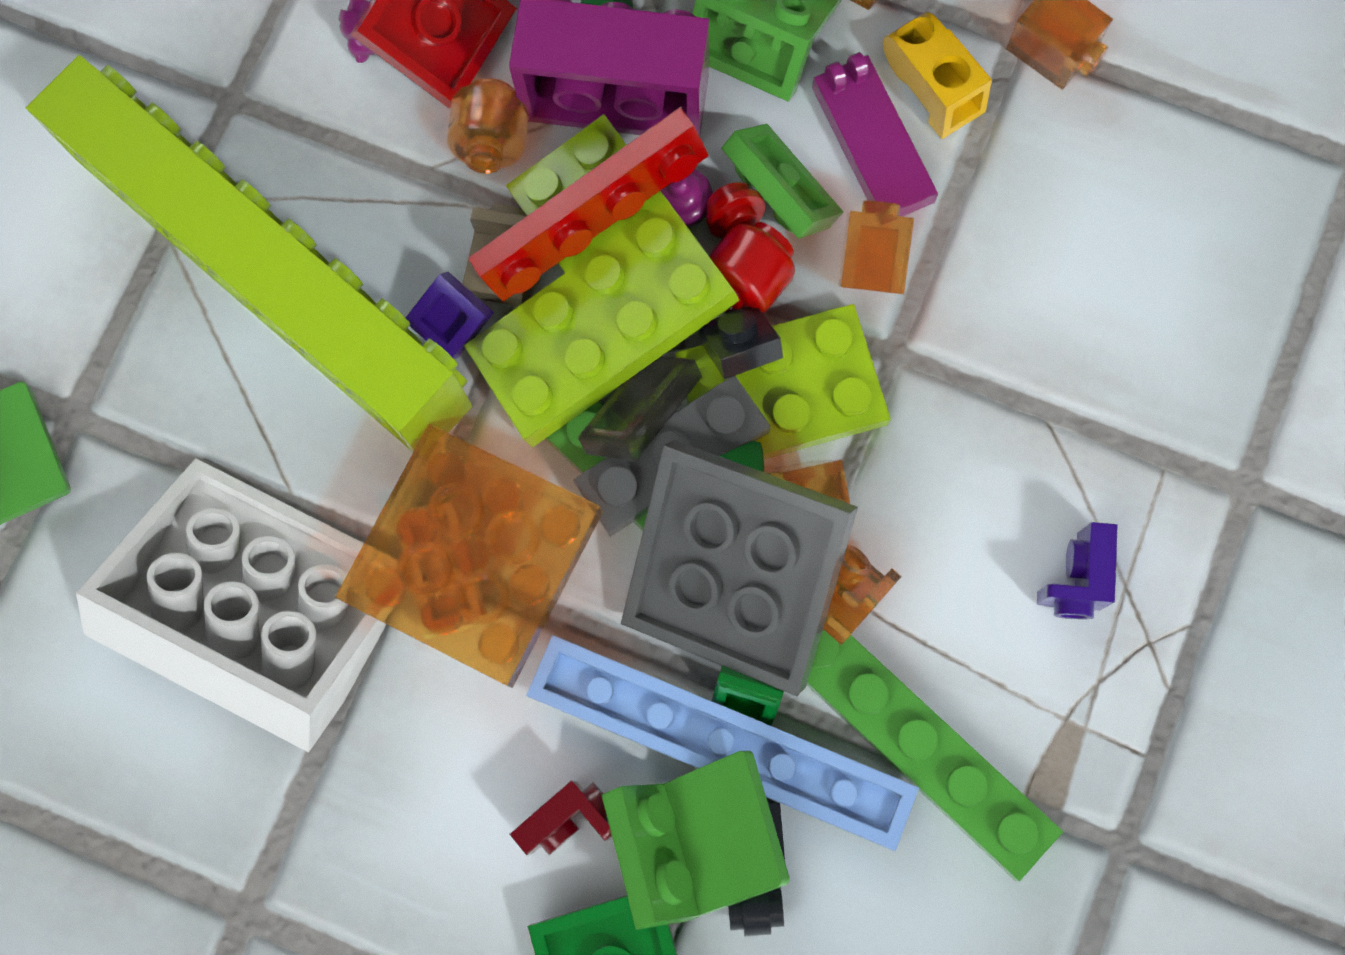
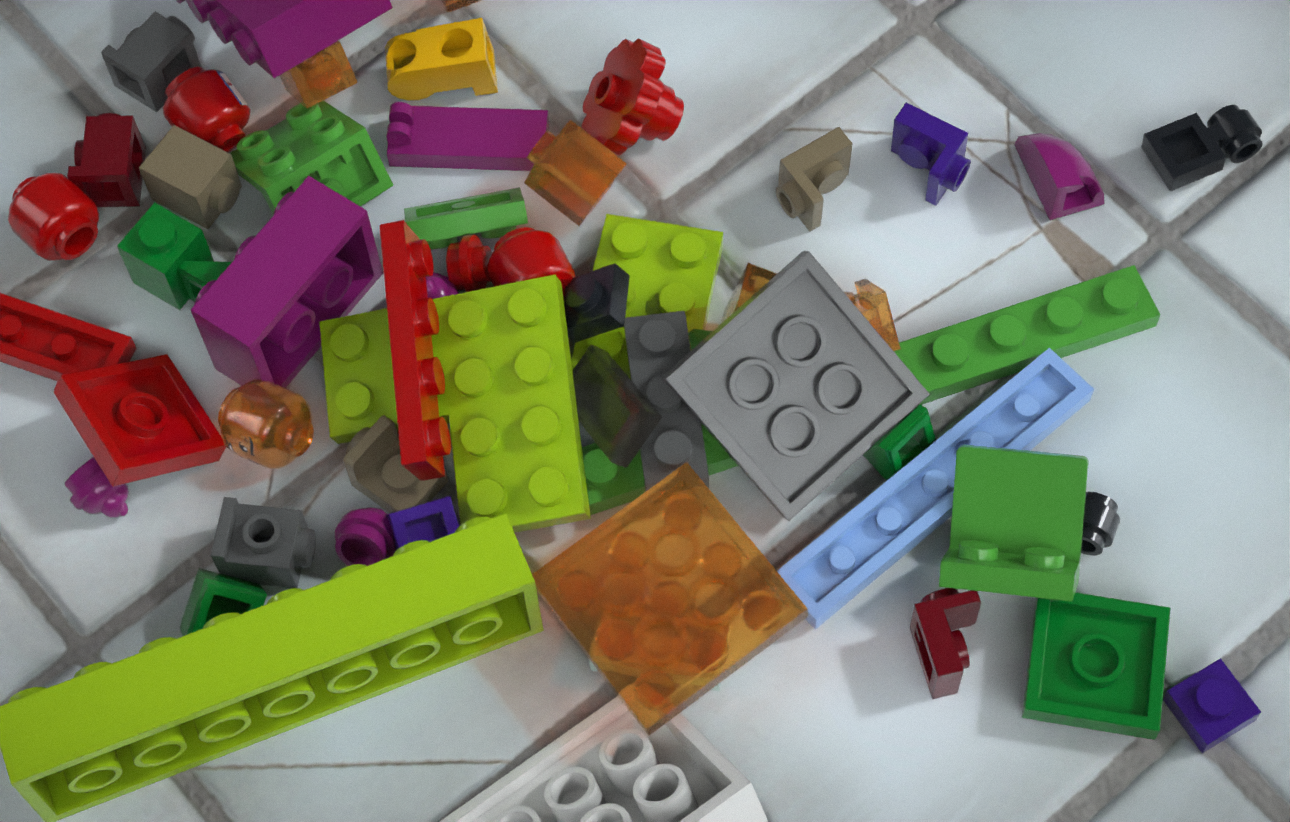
camera: 65 degrees left, 15 degrees down
(307, 188) = (216, 595): none -> green slope
(374, 163) = (265, 563): none -> dark grey brick
(423, 262) = (364, 537): none -> magenta plate
(980, 263) = (630, 99): none -> red plant
(1005, 473) = (813, 172): none -> dark tan bracket
(1133, 711) = (1059, 175): none -> magenta brick
(1234, 832) = (1191, 151): none -> black plate

